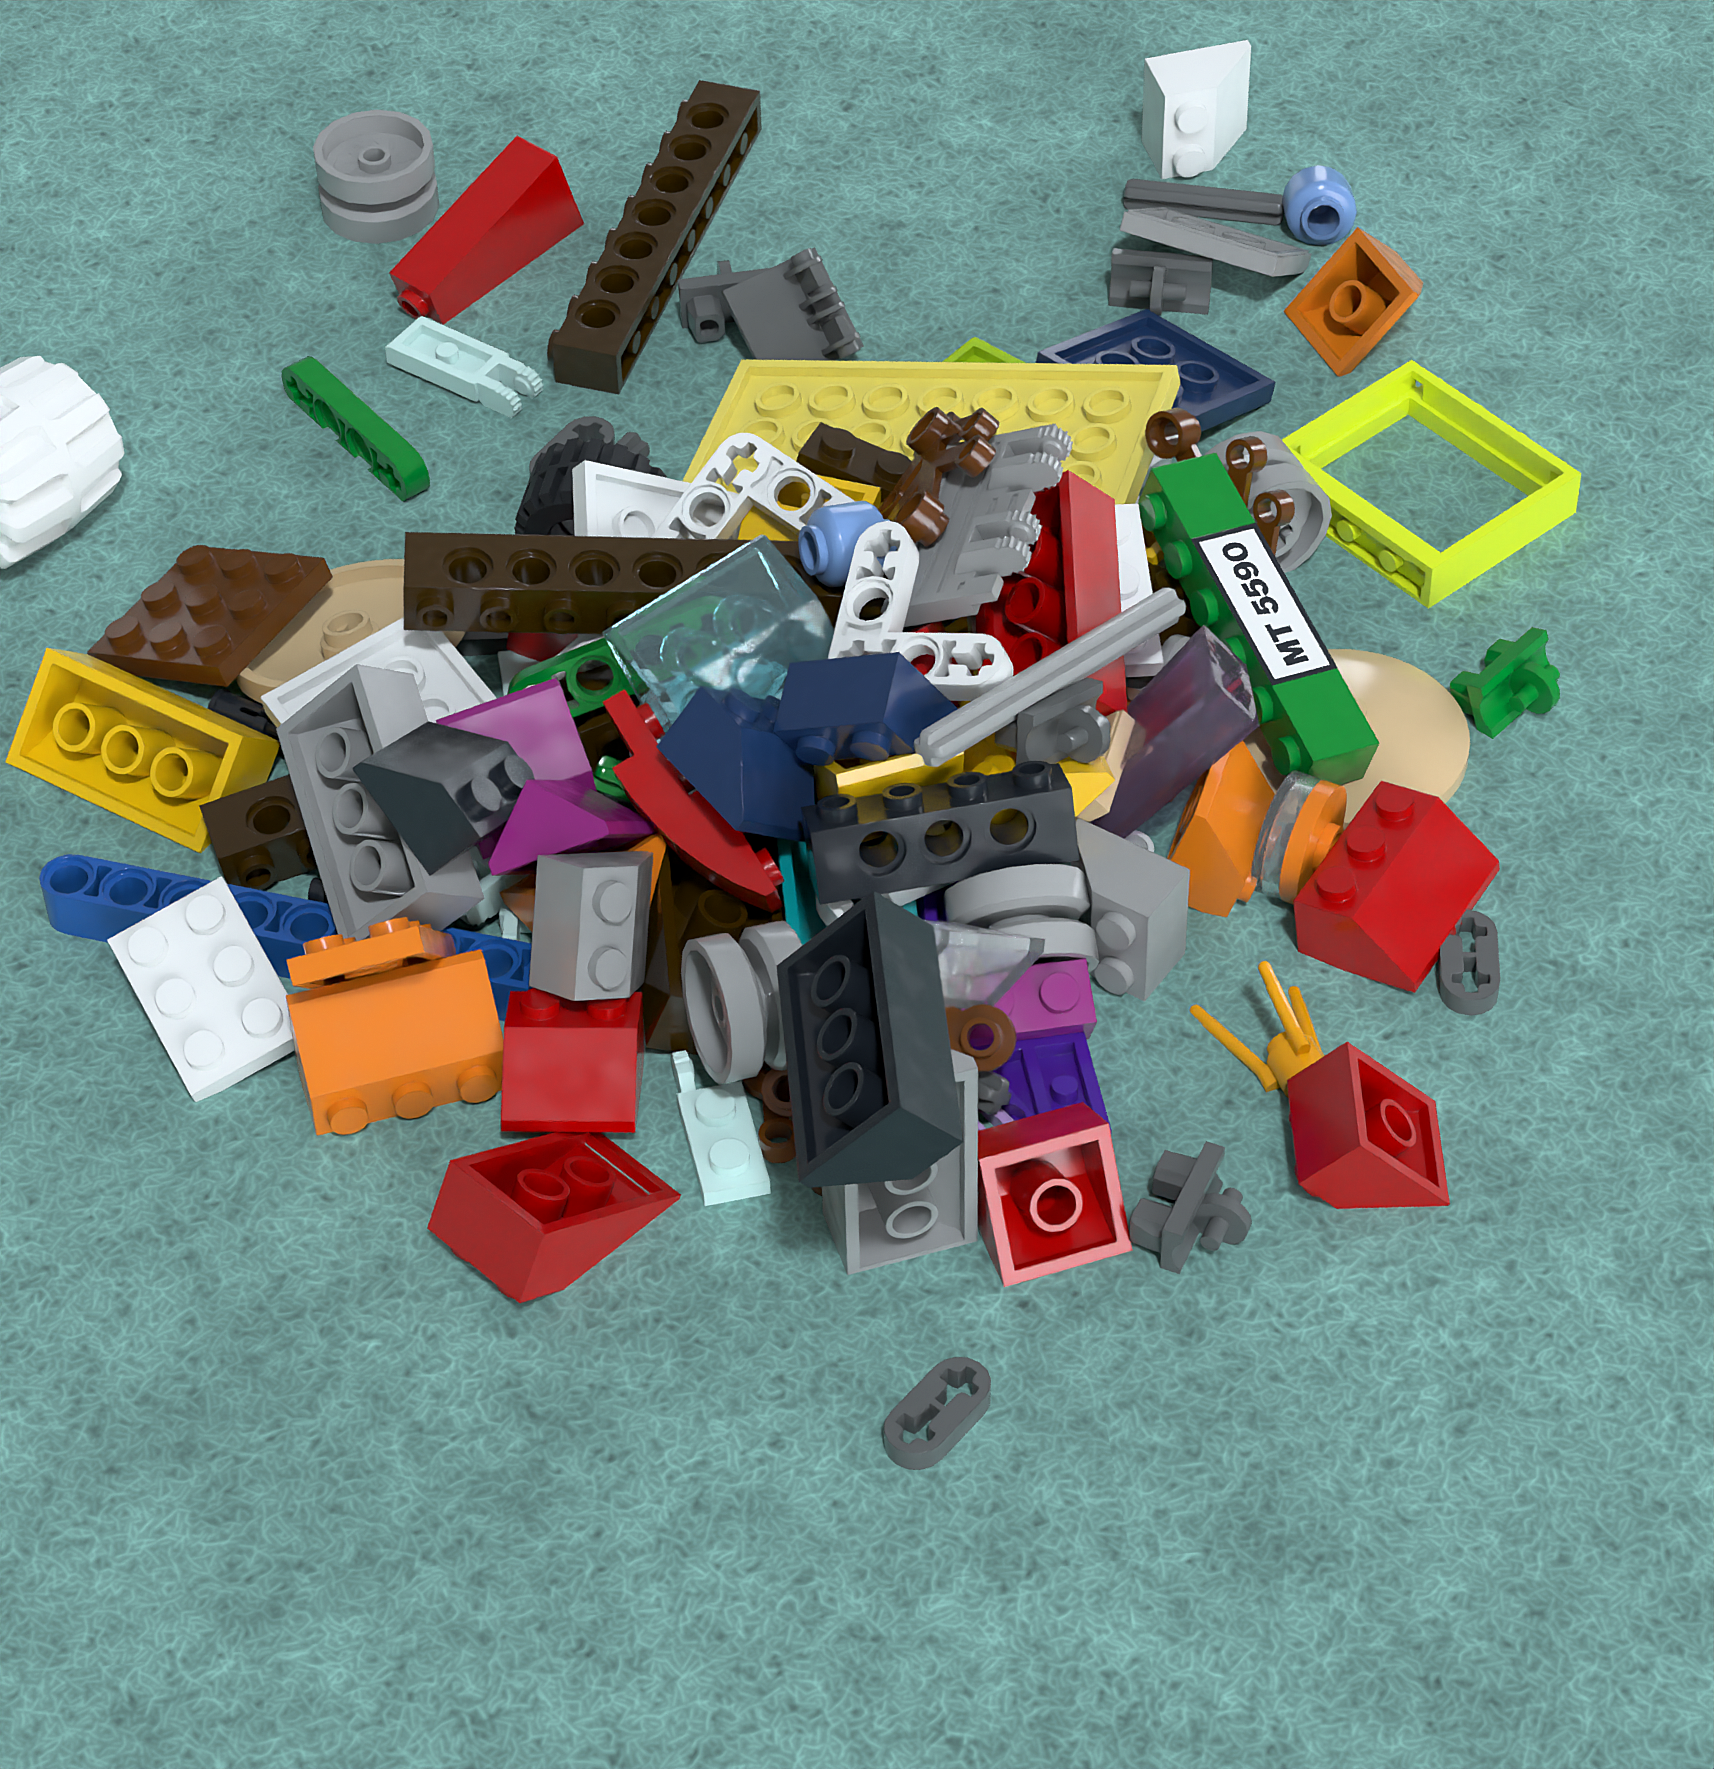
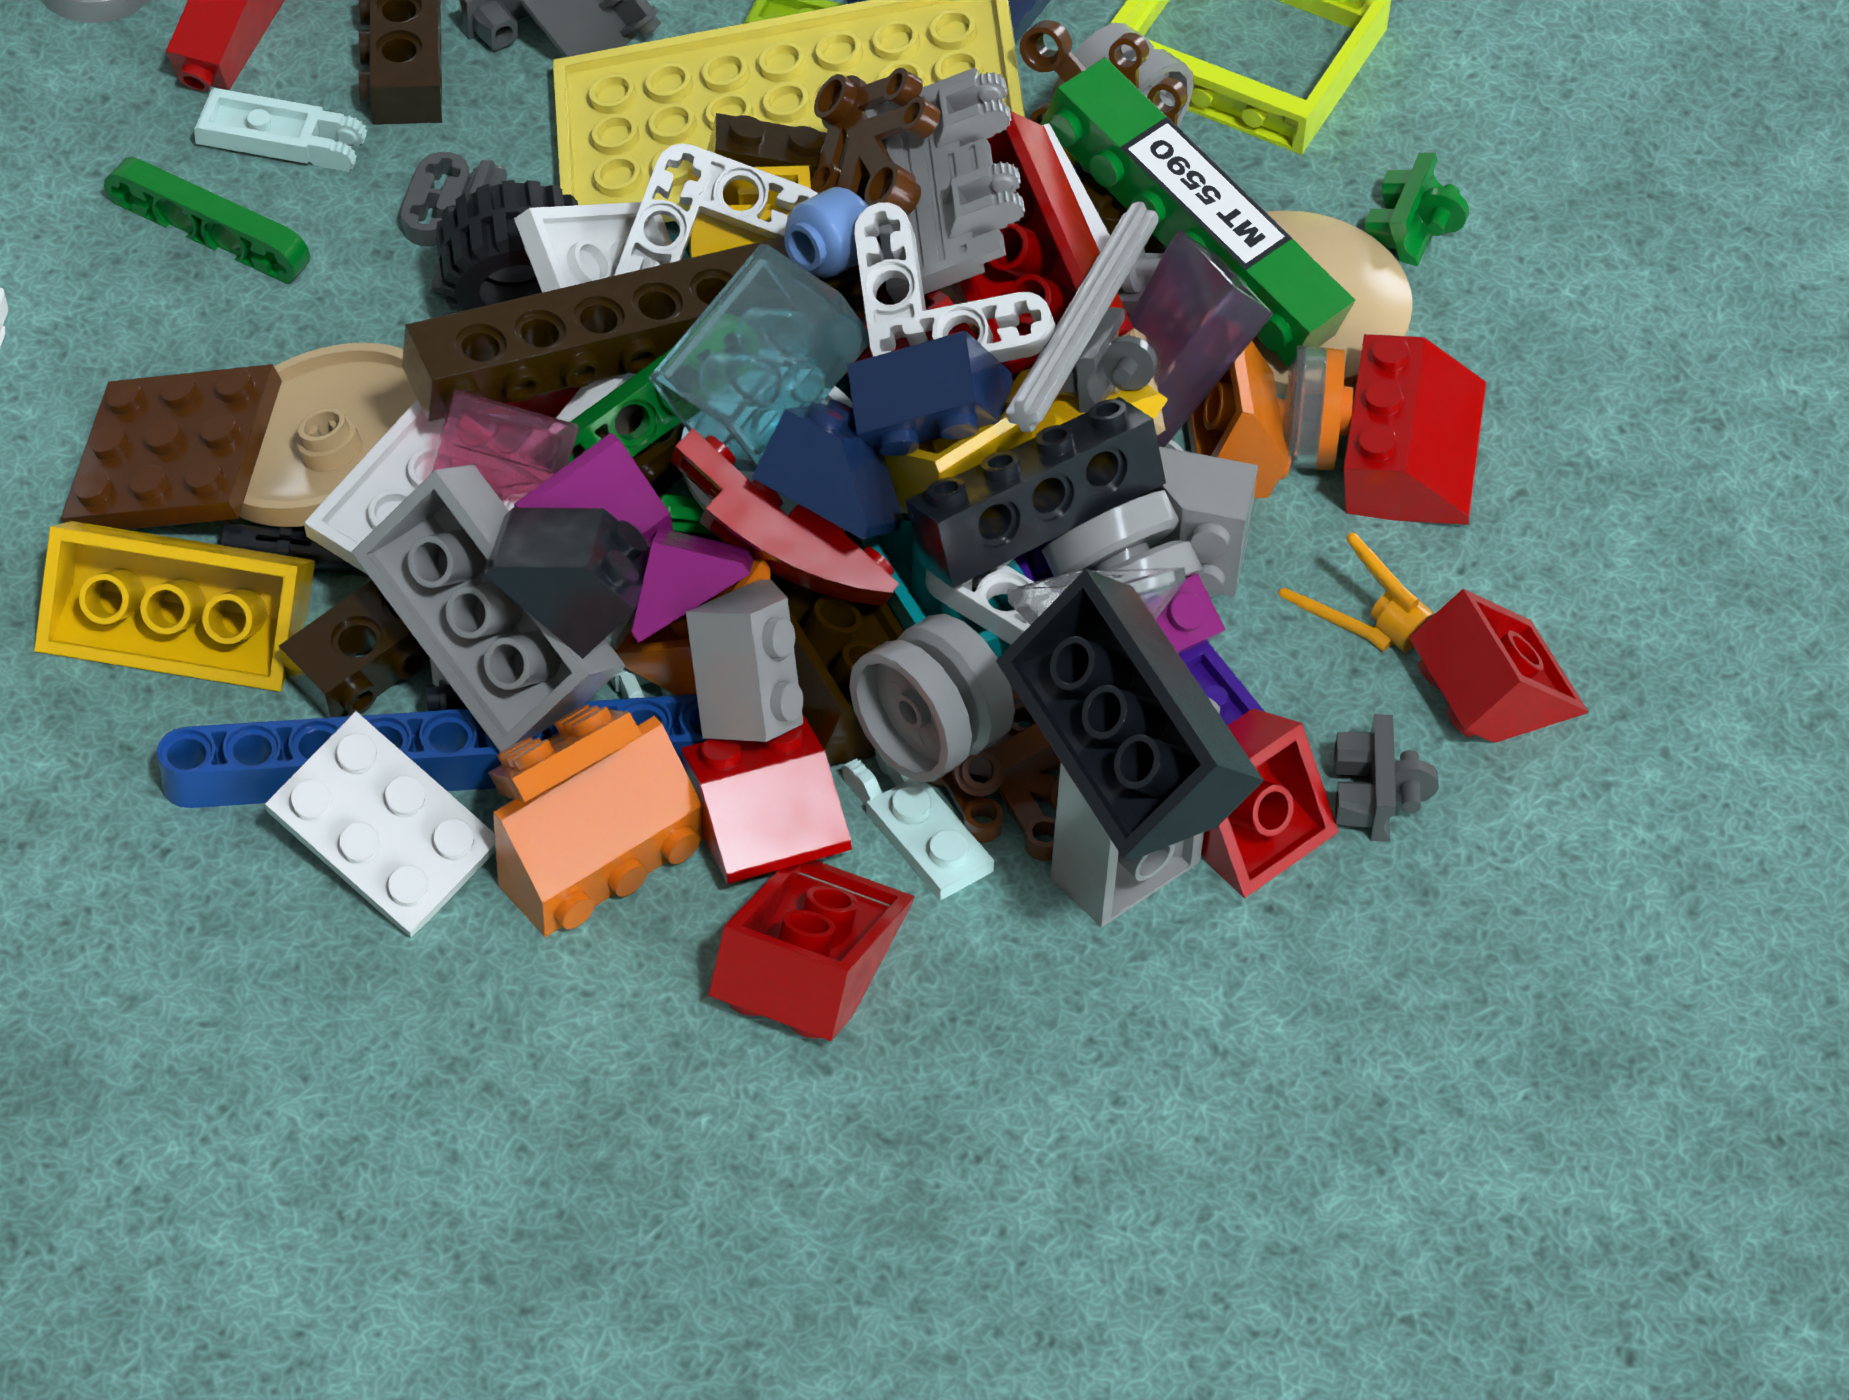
camera: 25 degrees left, 5 degrees up
(453, 662) = (504, 442): none -> clear pink wing
(928, 1403) = (1263, 1034): dark grey beam -> none
(1482, 962) = (1511, 478): dark grey beam -> none

